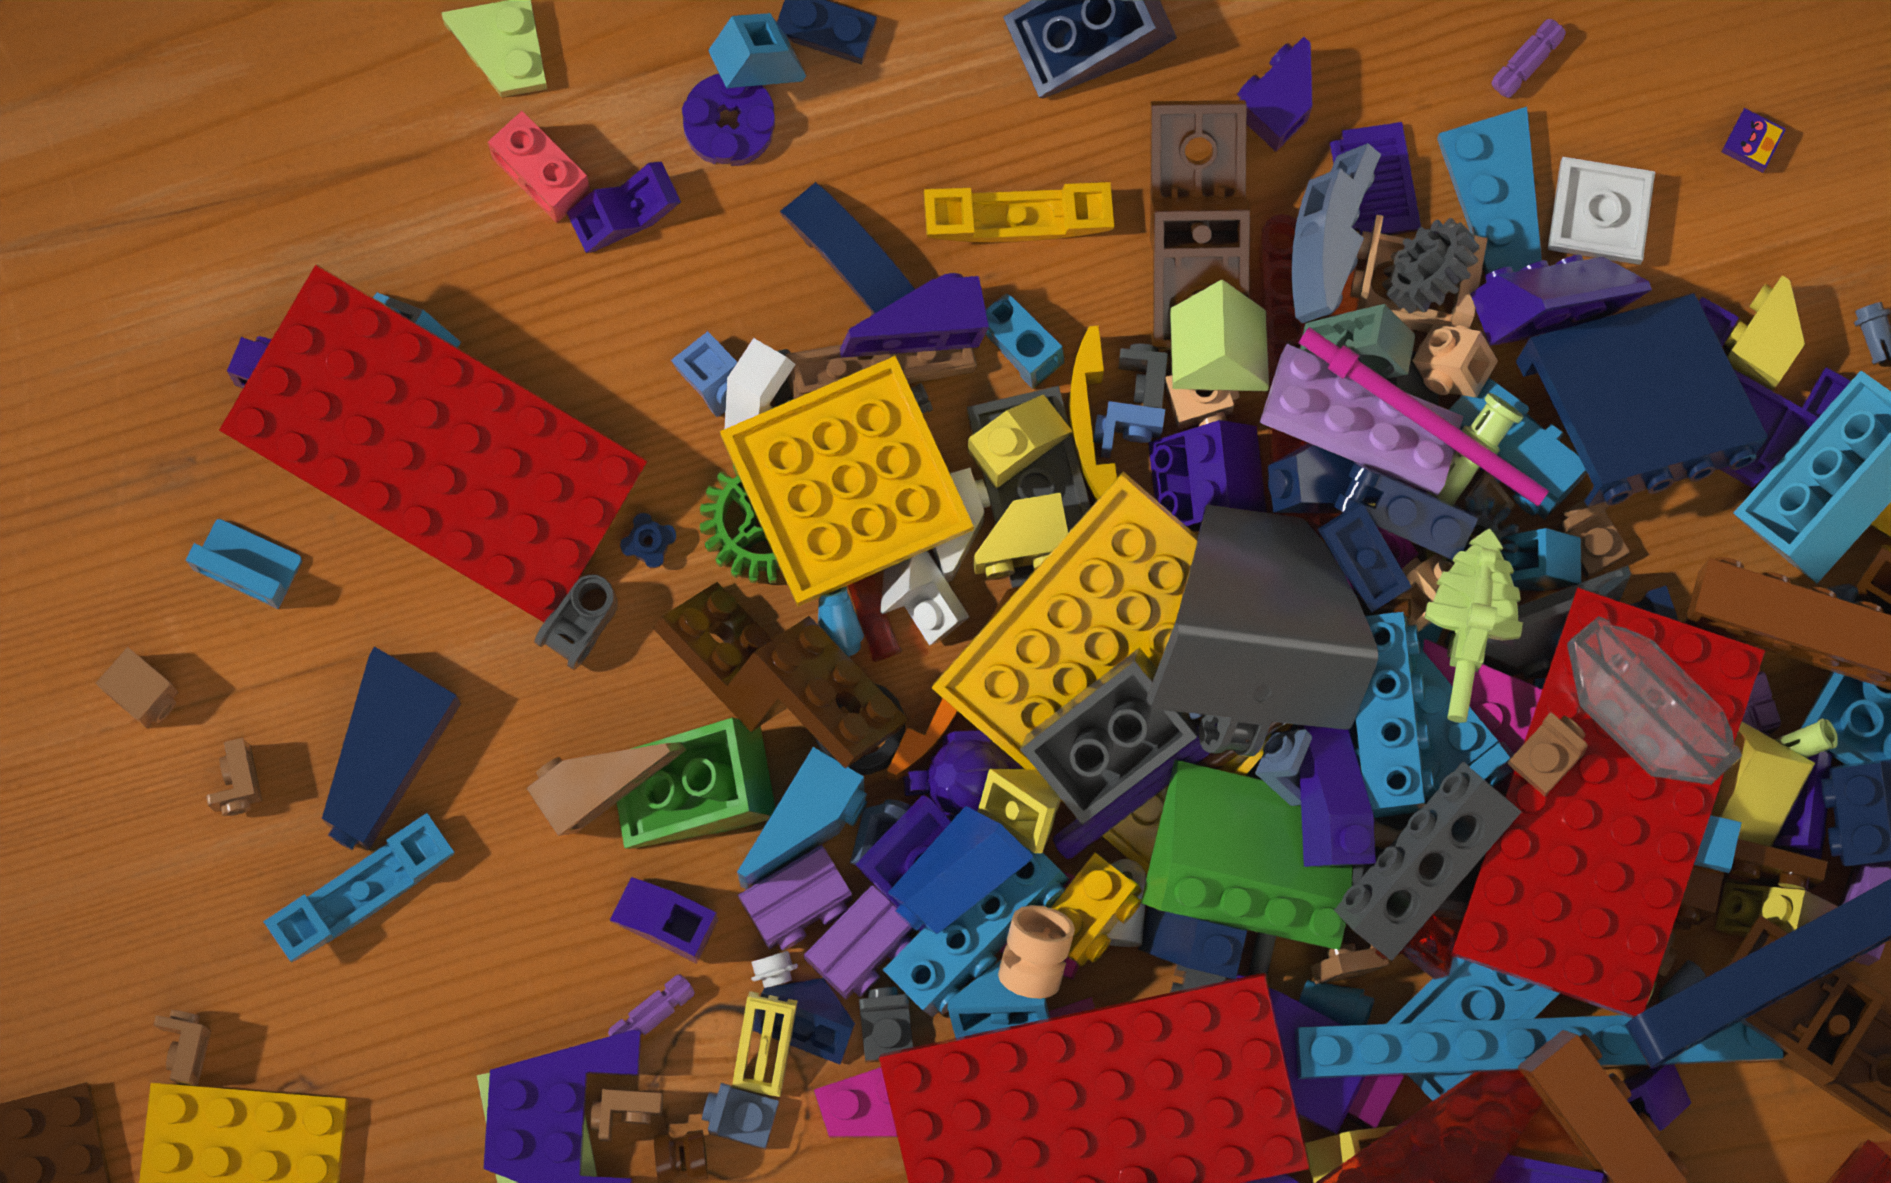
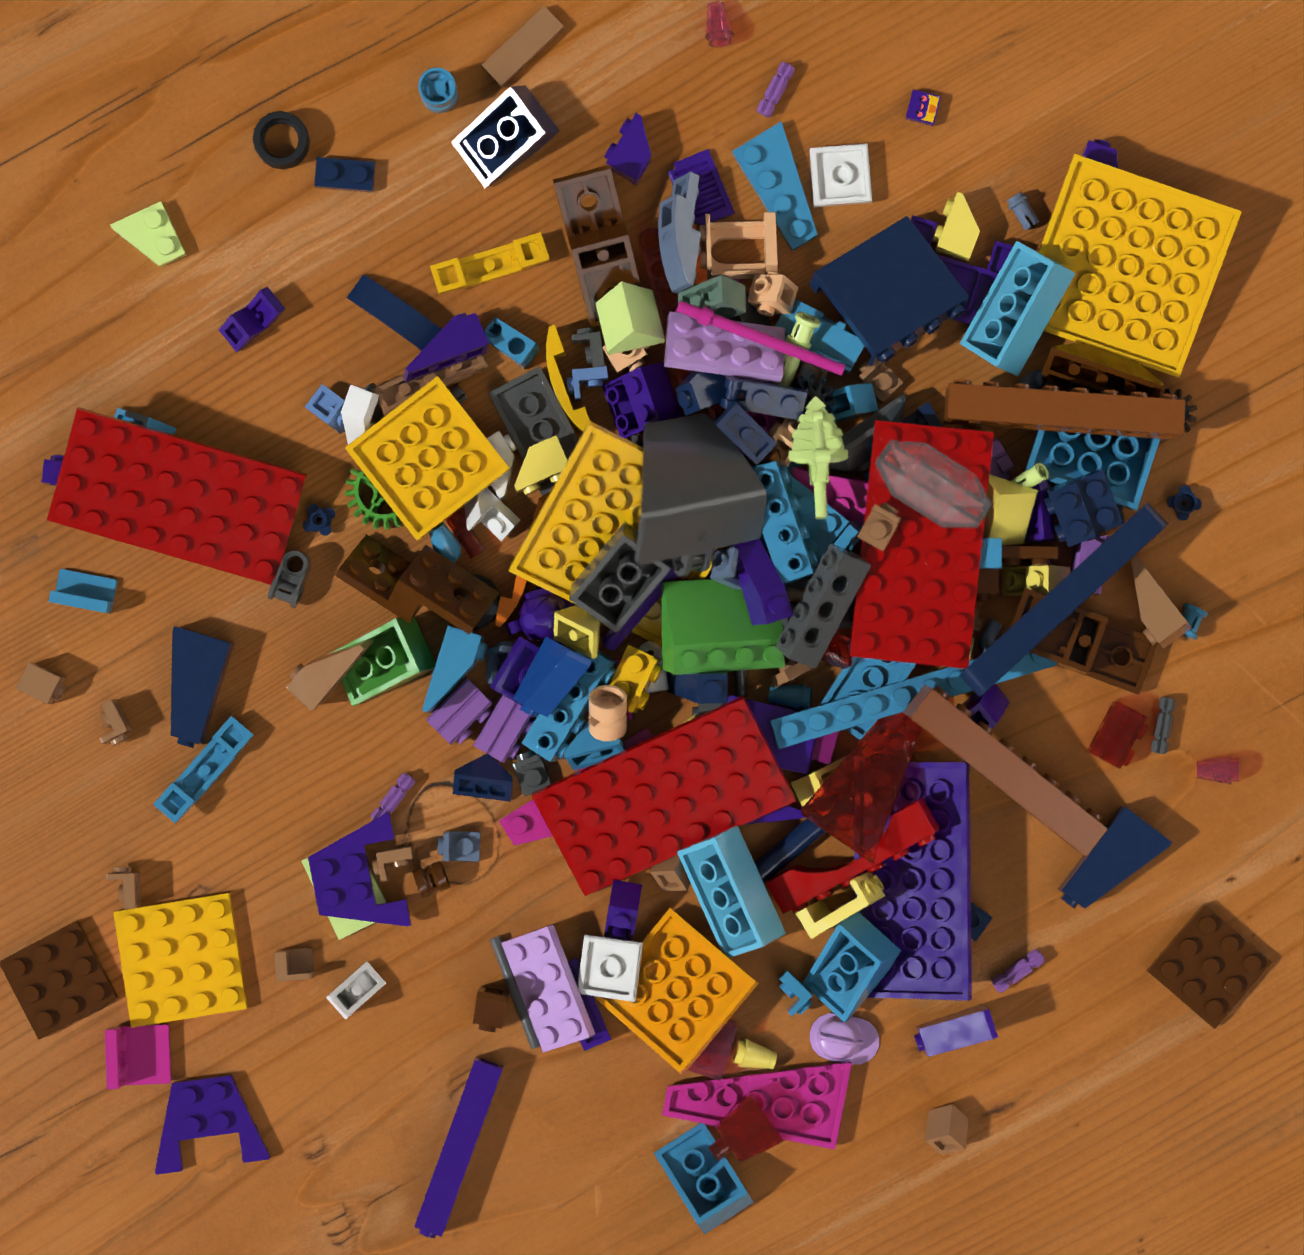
camera: 10 degrees left, 10 degrees up
(539, 166) = (194, 307): coral brick -> none
(665, 918) = (386, 743): dark purple slope -> none
(725, 144) = (298, 231): dark purple plate -> none
(755, 53) = (307, 206): dark azure slope -> none
(771, 1006) = (461, 780): light yellow tile -> none
(773, 969) = (457, 756): white plate -> none
(1017, 439) = (523, 405): light yellow slope -> none
(1430, 265) = (744, 239): dark grey gear -> none
(1553, 297) = (822, 240): dark purple slope -> none

